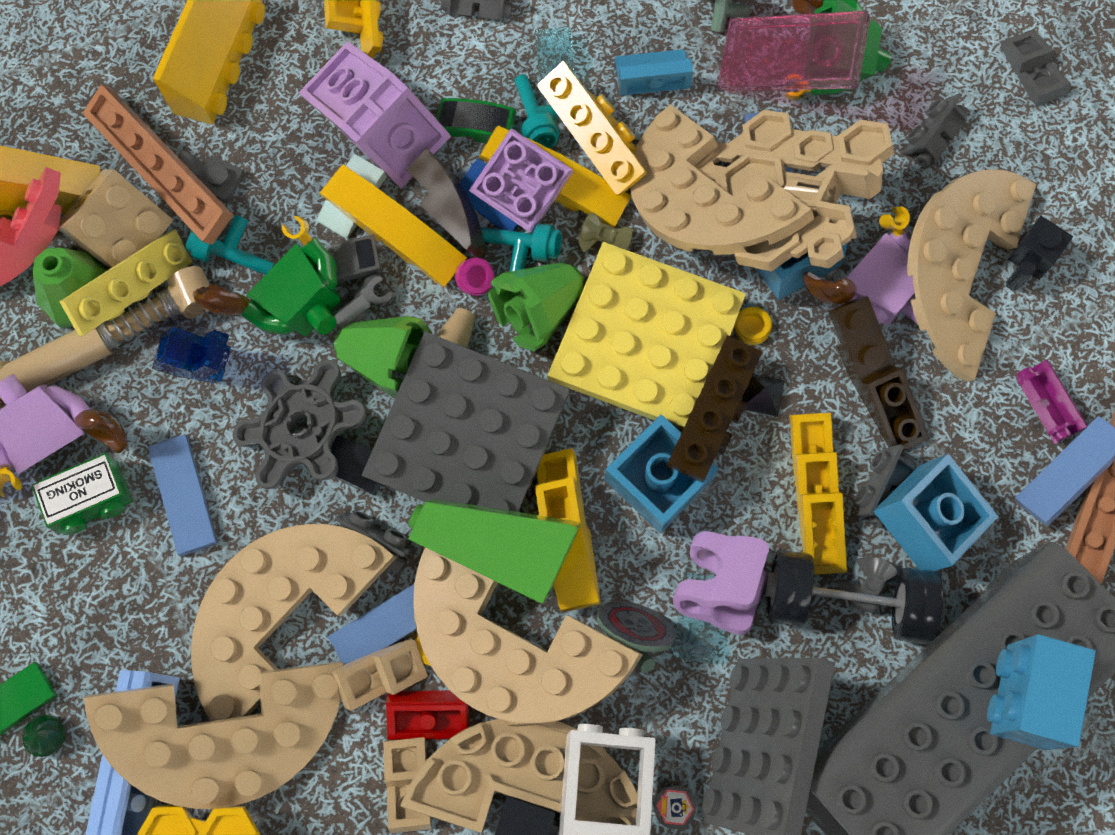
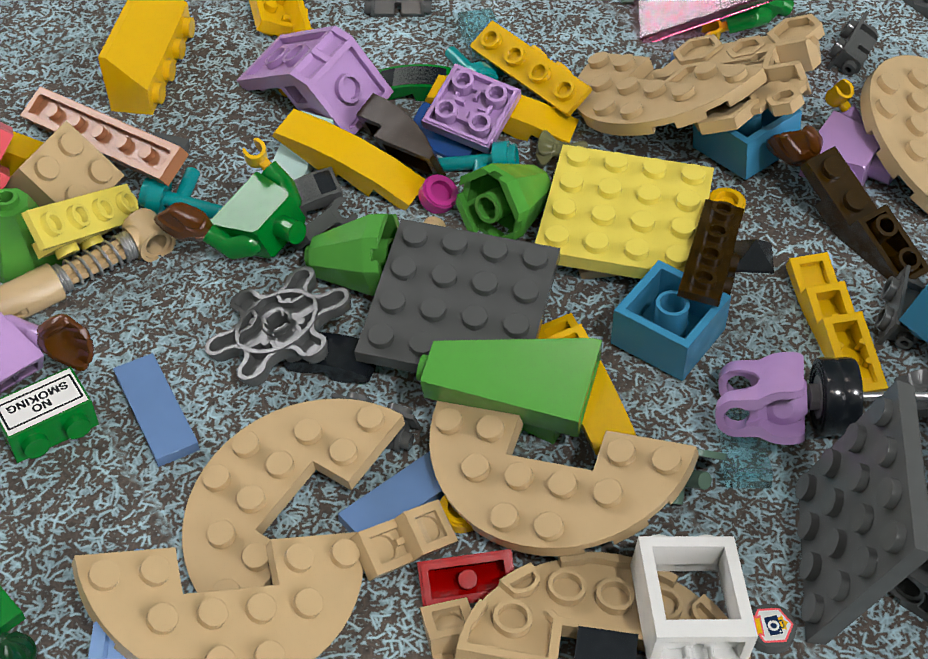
camera: 10 degrees left, 25 degrees down
(193, 355) = (156, 286): clear blue brick -> none
(653, 72) = (578, 33): dark azure panel -> none

